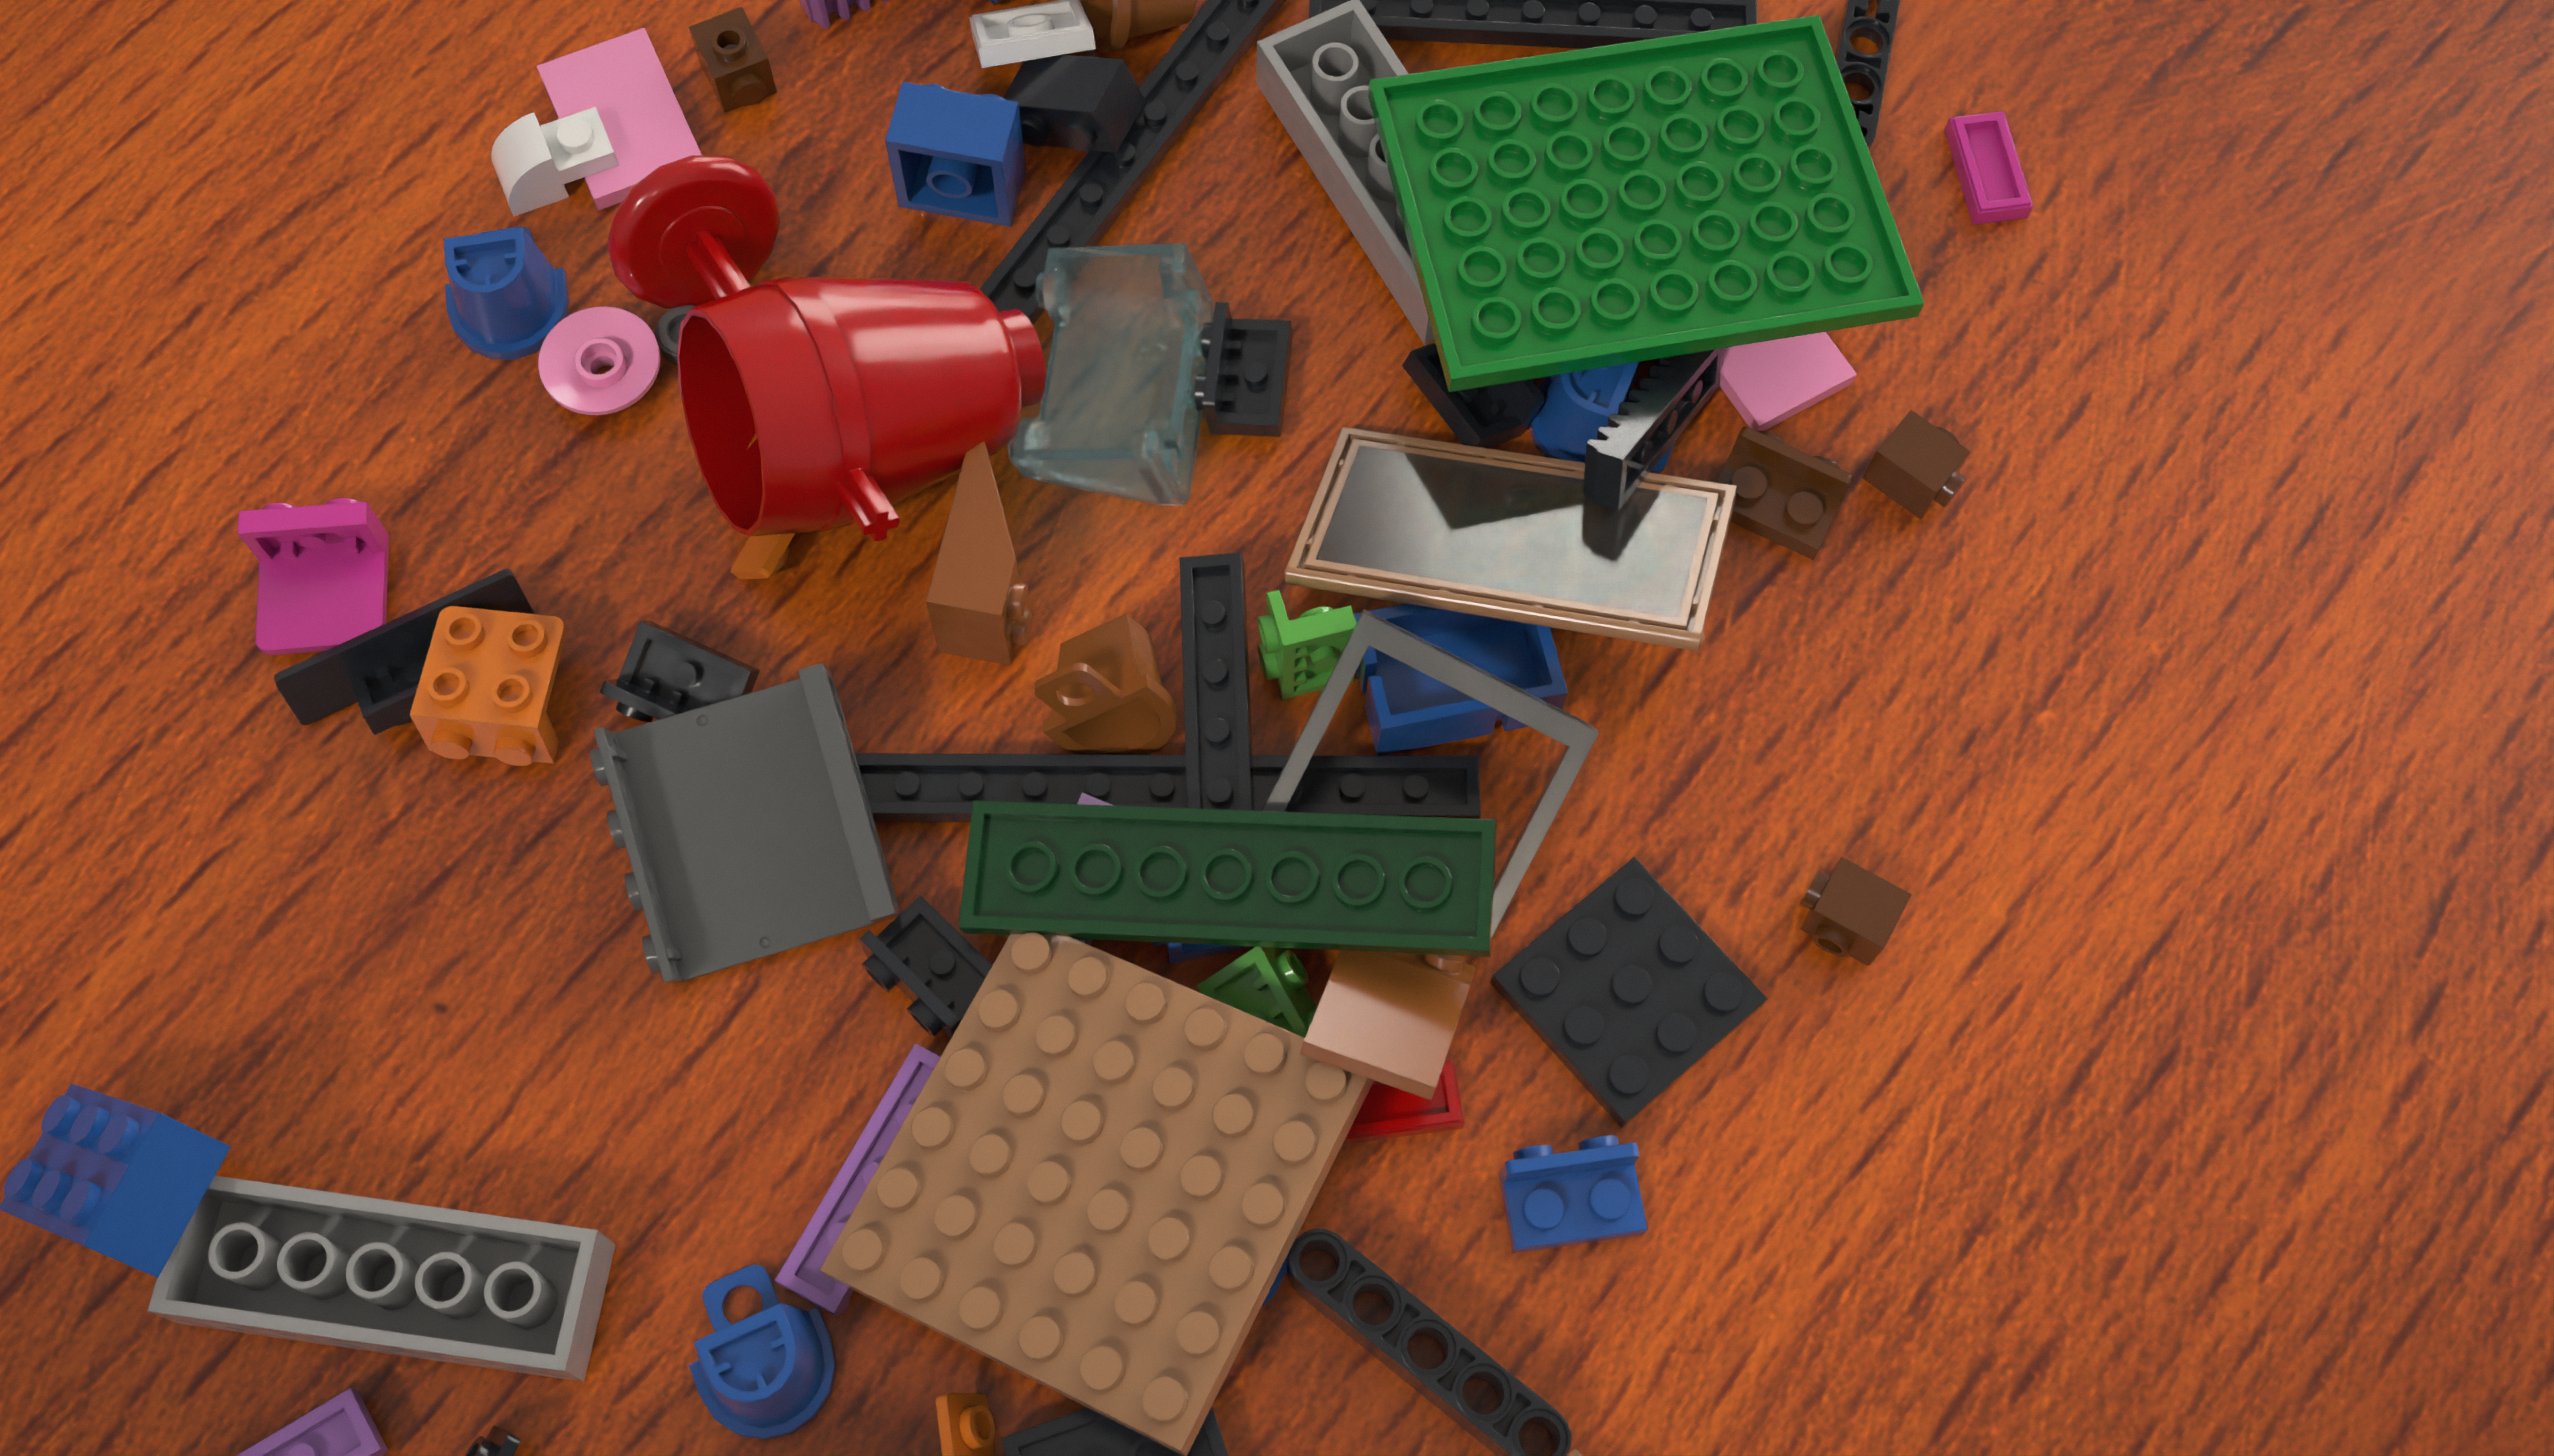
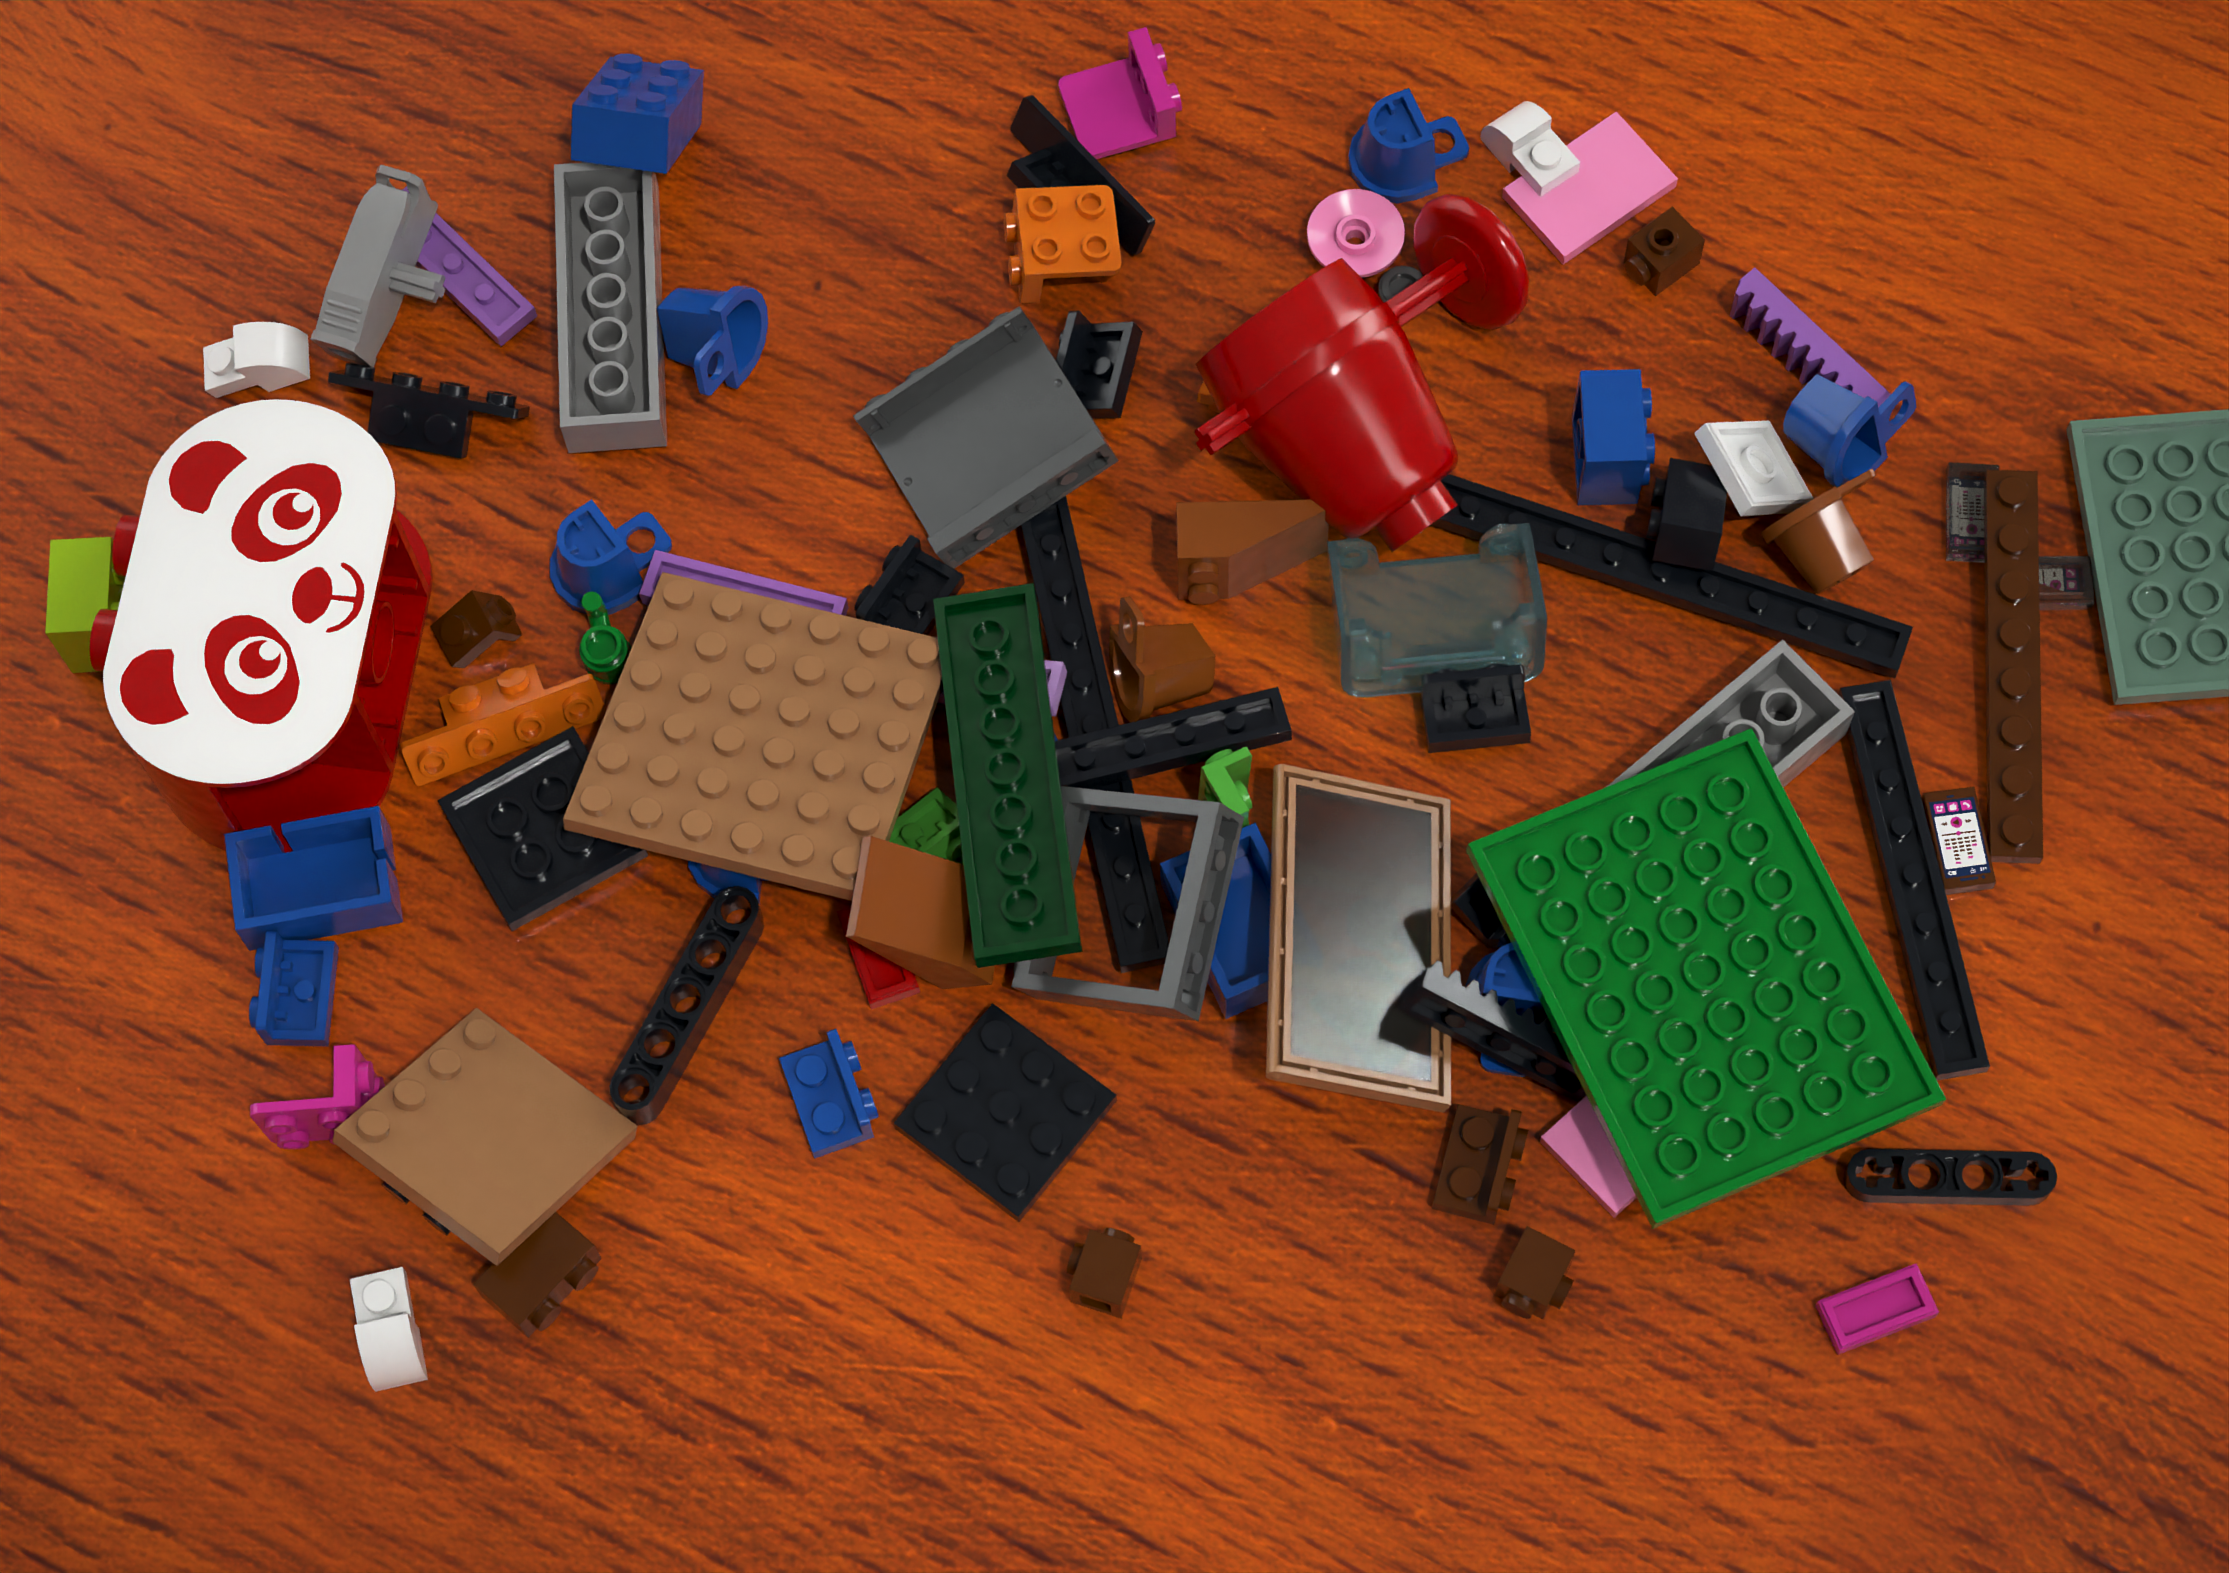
camera: 85 degrees right, 0 degrees up
(476, 1144) = (715, 333): none -> blue container
(900, 1378) = (602, 646): none -> green piece

